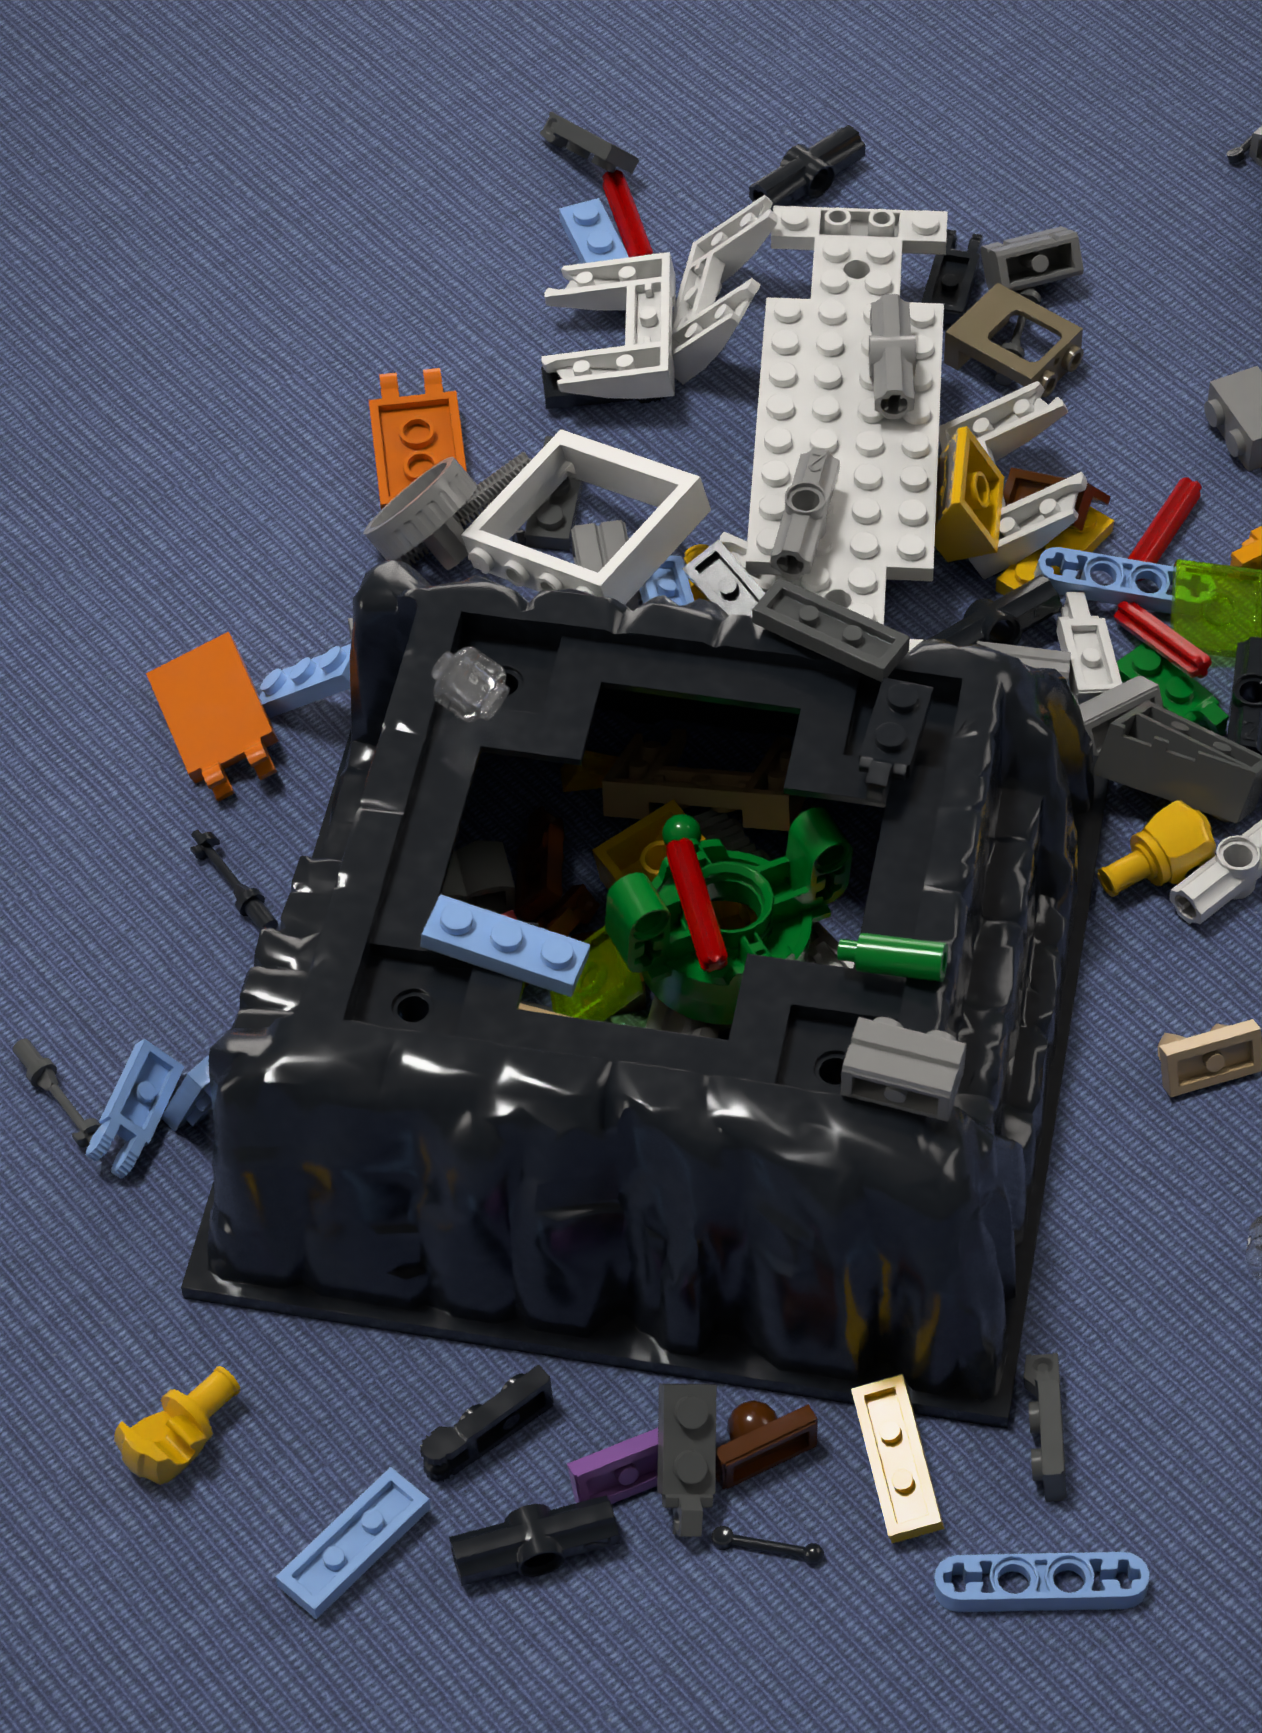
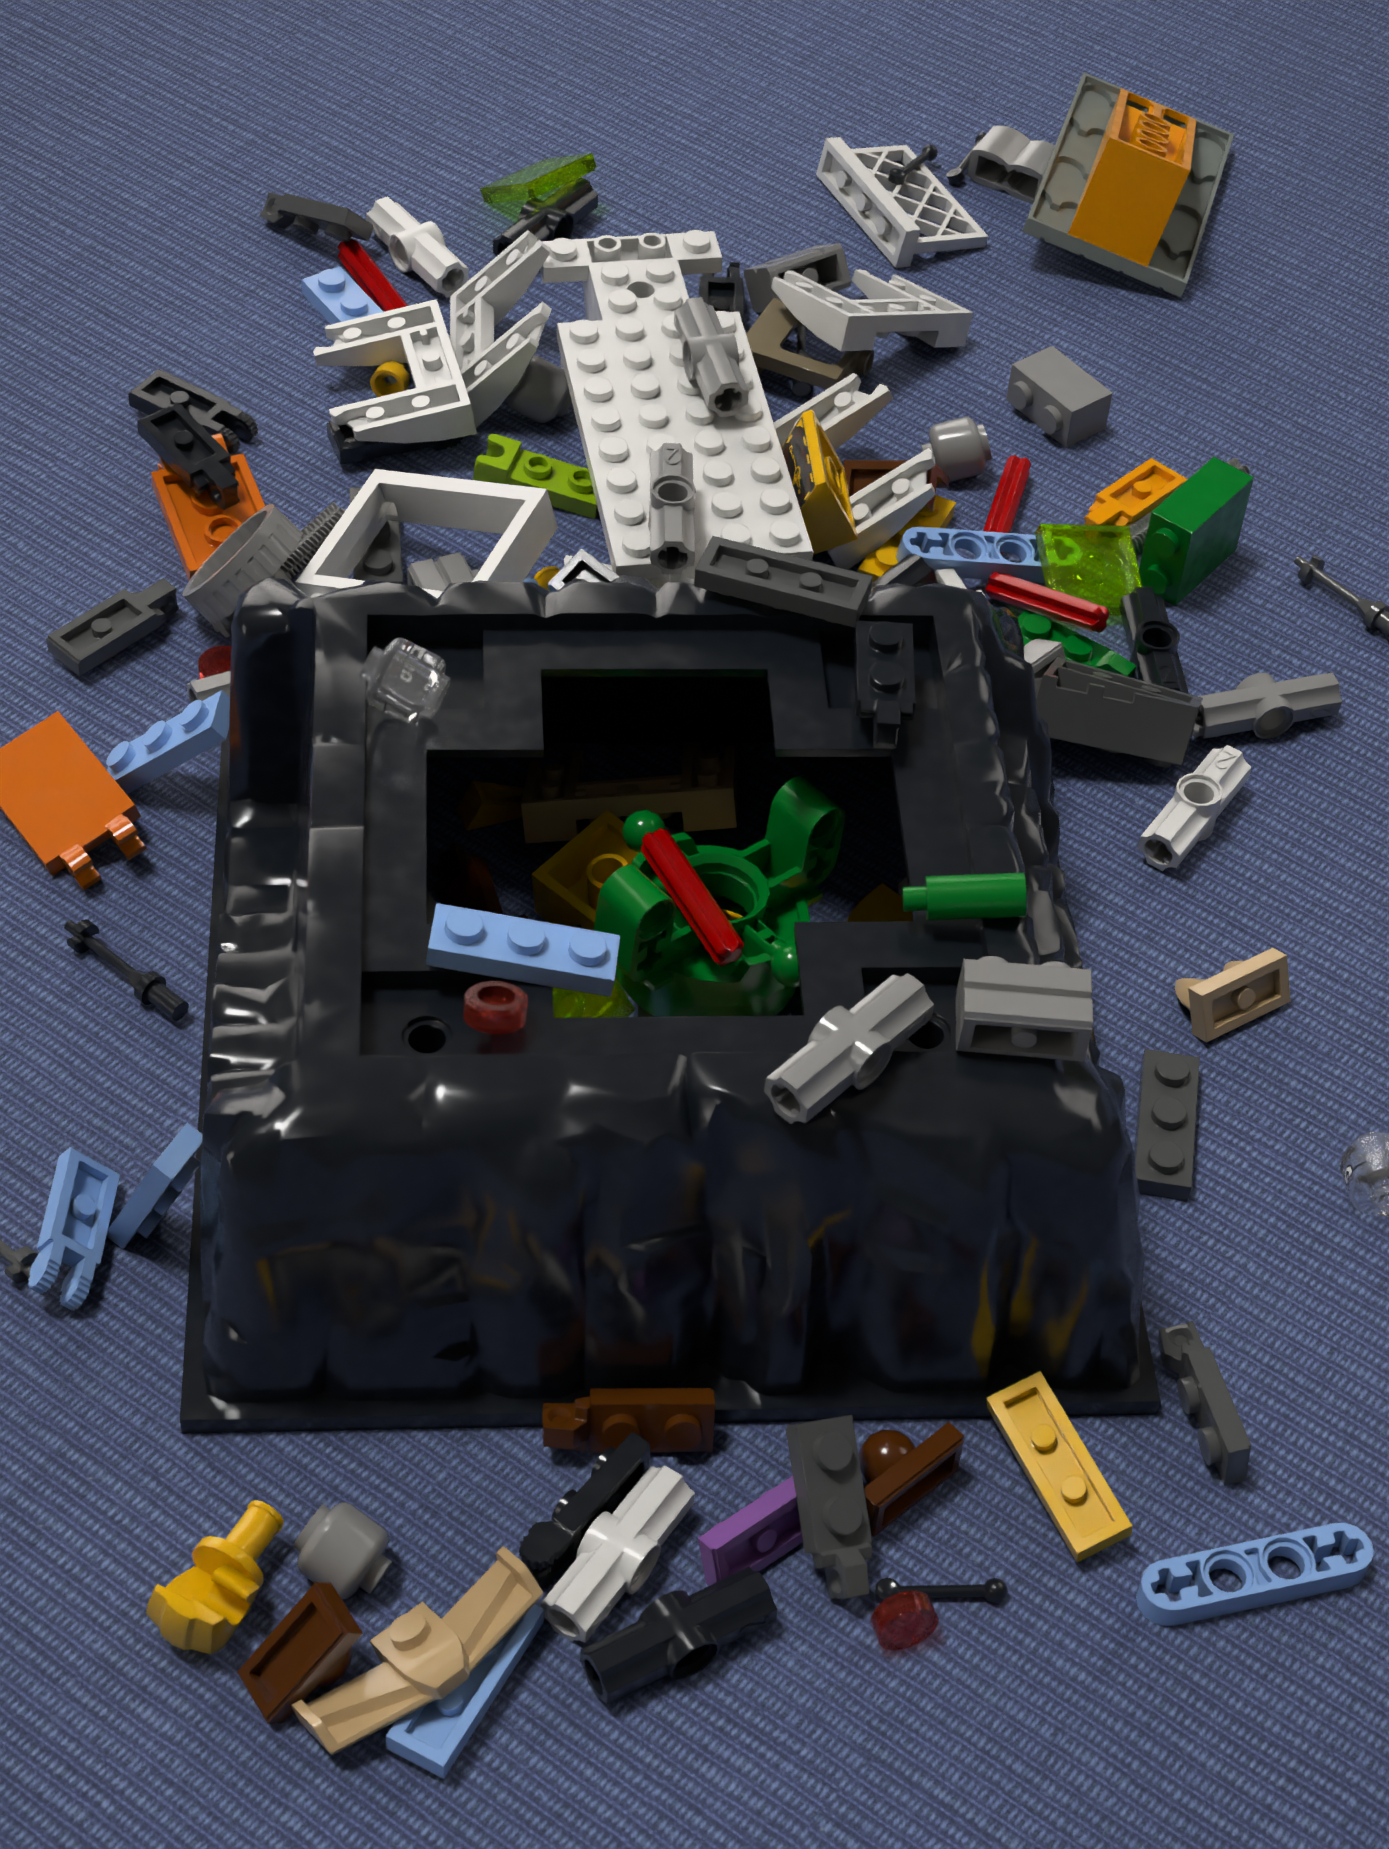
camera: 20 degrees left, 5 degrees down
(227, 1496) = (301, 1653): none -> reddish brown tile
(281, 1420) = (343, 1549): none -> light grey head
(300, 551) = (112, 626): none -> dark grey hinge
(321, 1518) = (423, 1657): none -> tan plate
(405, 388) = (191, 453): none -> black hinge
(423, 337) = (211, 411): none -> black hinge
(464, 995) = (495, 1007): none -> clear red tile
(504, 1463) = (617, 1553): none -> white piece
(563, 1354) = (662, 1416): none -> reddish brown hinge
(611, 336) = (396, 375): none -> yellow hinge
(676, 184) = (417, 247): none -> white piece
(711, 440) = (566, 483): none -> lime plate
(723, 1564) = (904, 1620): none -> clear red tile
(742, 355) = (541, 392): none -> light grey head
(743, 1079) = (848, 1048): none -> light grey piece
(812, 122) = (538, 178): none -> clear neon green tile
(1104, 1168) = (1166, 1124): none -> dark grey plate
(1131, 308) = (890, 308): none -> white wedge
(1131, 465) = (959, 447): none -> light grey head
(1138, 182) = (884, 212): none -> white fence
(1163, 850) = (1120, 801): yellow piece -> none
(1170, 153) = (898, 176): none -> black hinge

